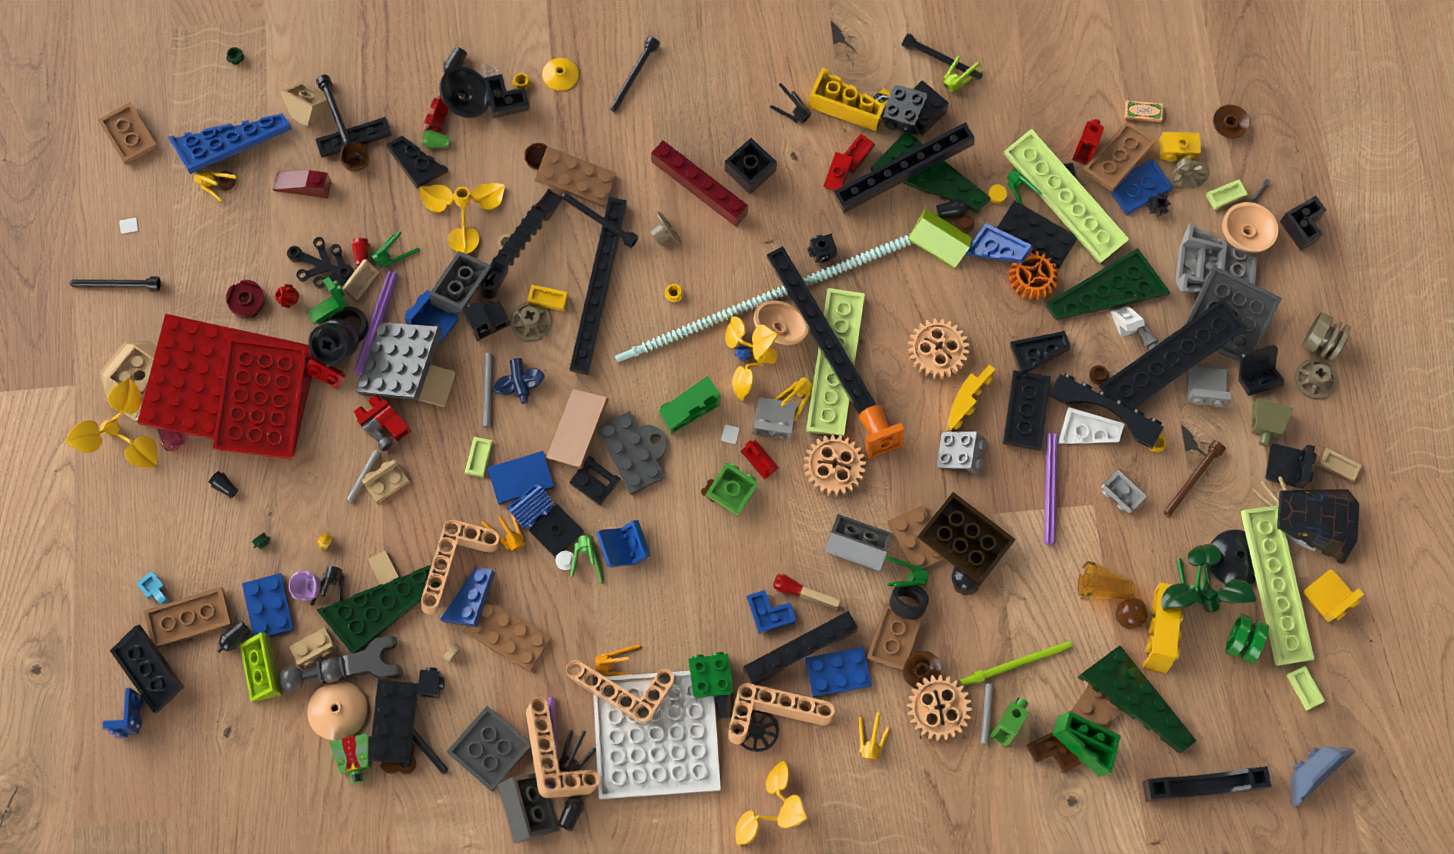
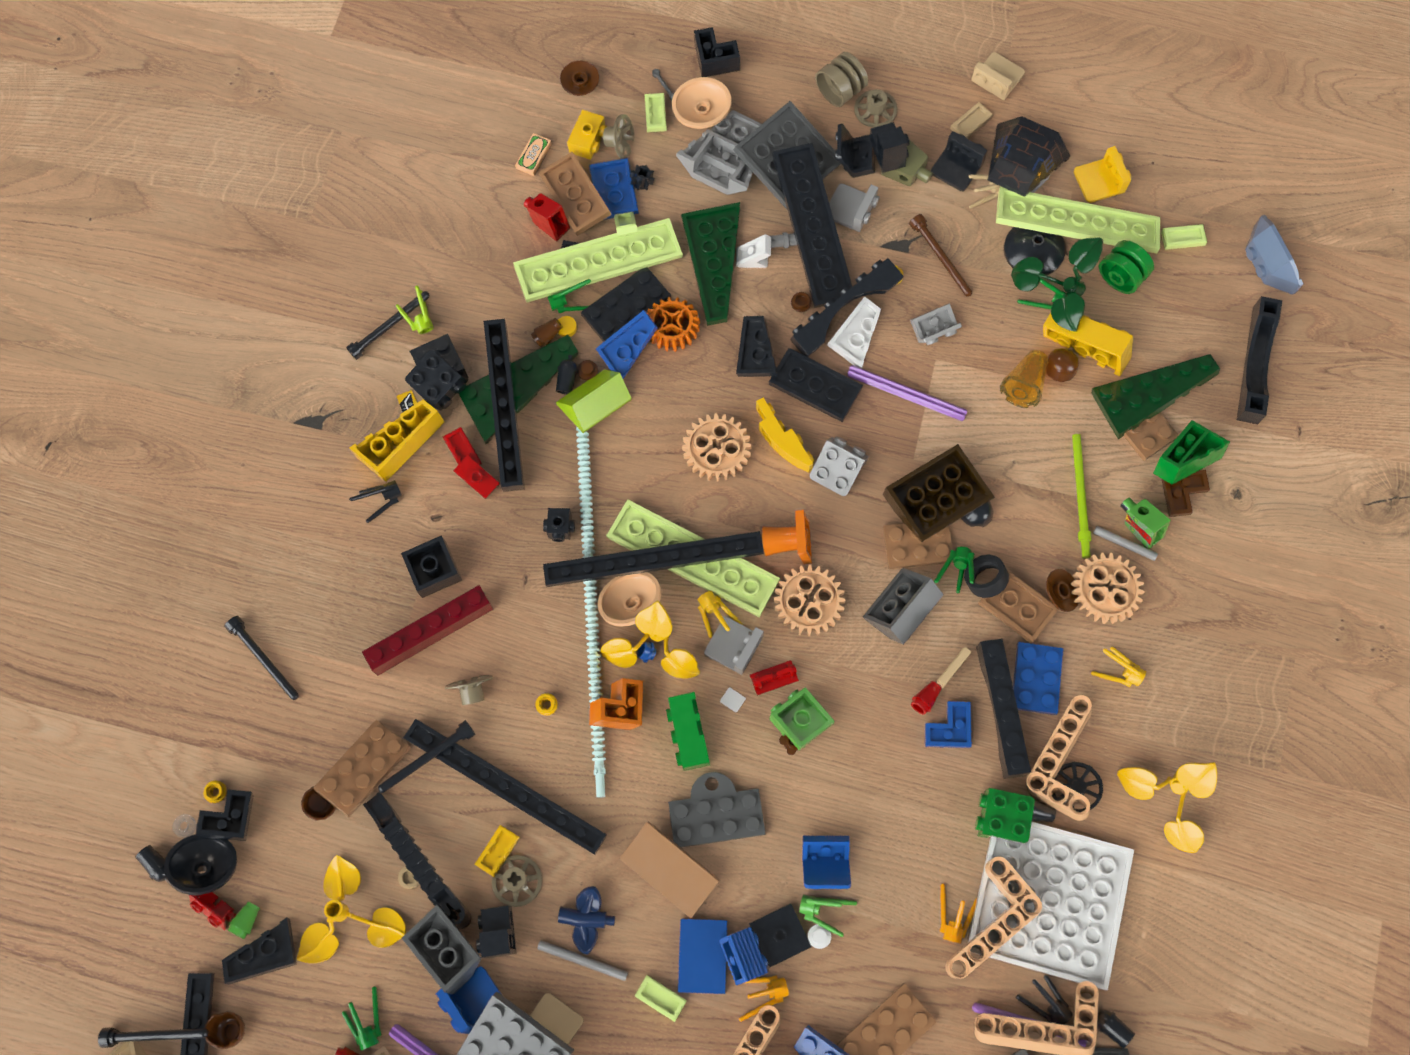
camera: 65 degrees left, 0 degrees up
(560, 81) = (234, 746): yellow dish -> none
(590, 485) = (741, 876): black plate -> none
(688, 349) = (623, 708): none -> orange brick
(983, 179) = (546, 332): none -> reddish brown cone
(1108, 205) = (625, 223): none -> yellowish green tile
(1272, 395) = (890, 146): none -> black brick
(1397, 473) = (997, 75): none -> tan bracket

